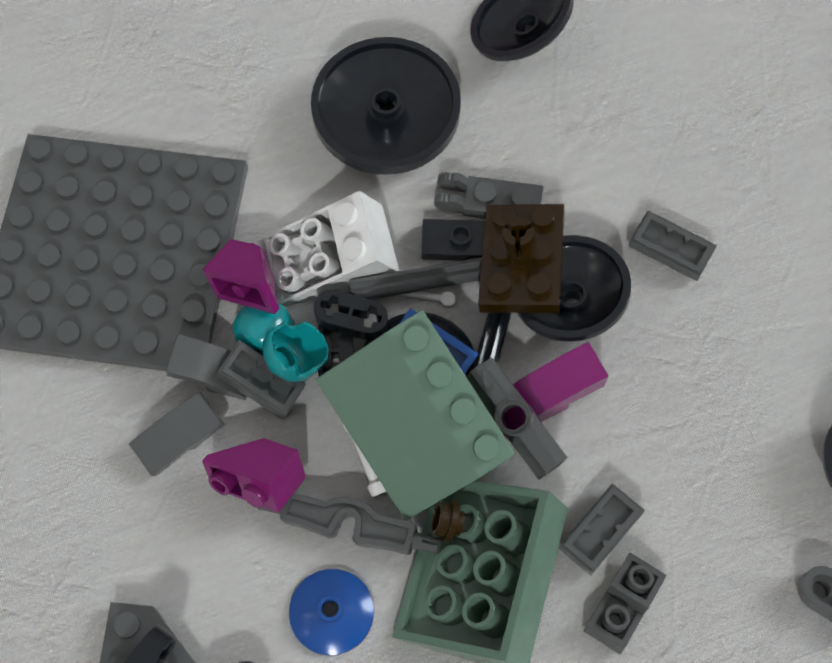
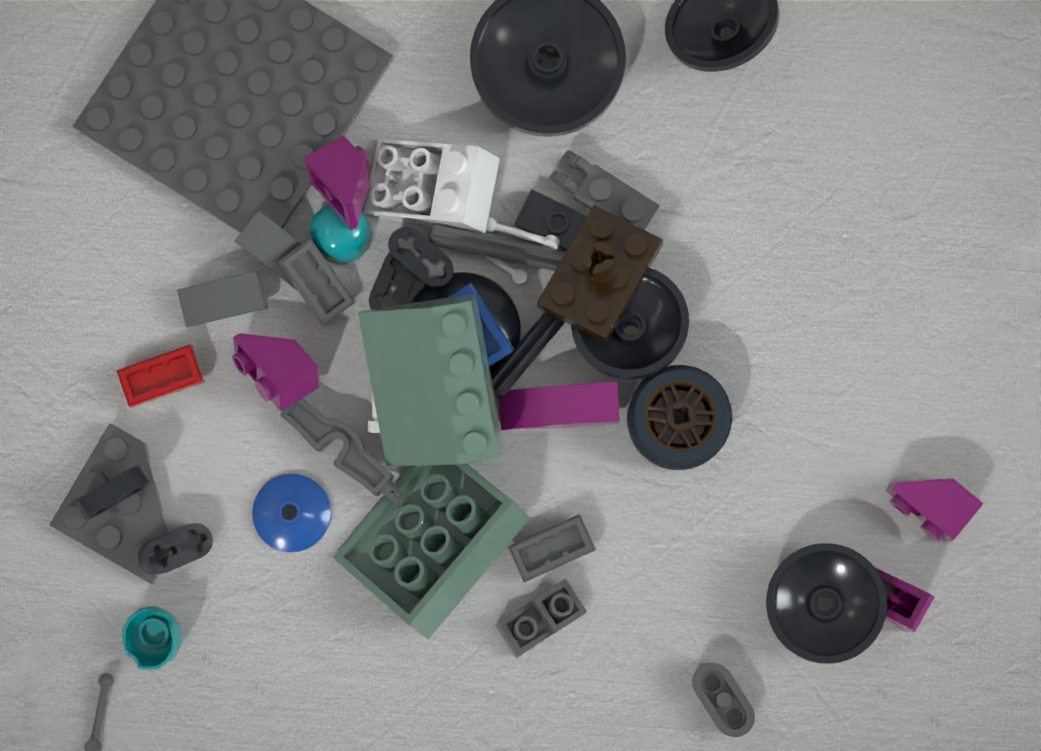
camera: 25 degrees right, 15 degrees up
(144, 534) = (160, 376): none -> red plate
(295, 351) = (355, 272): teal hair -> none
(447, 520) = (419, 484): dark brown plate -> none
(461, 254) = (549, 241): none -> white hinge
(532, 439) = (525, 448): dark grey piece -> none
(658, 354) = (706, 417): none -> wheel
(672, 245) = (749, 318): dark grey plate -> none

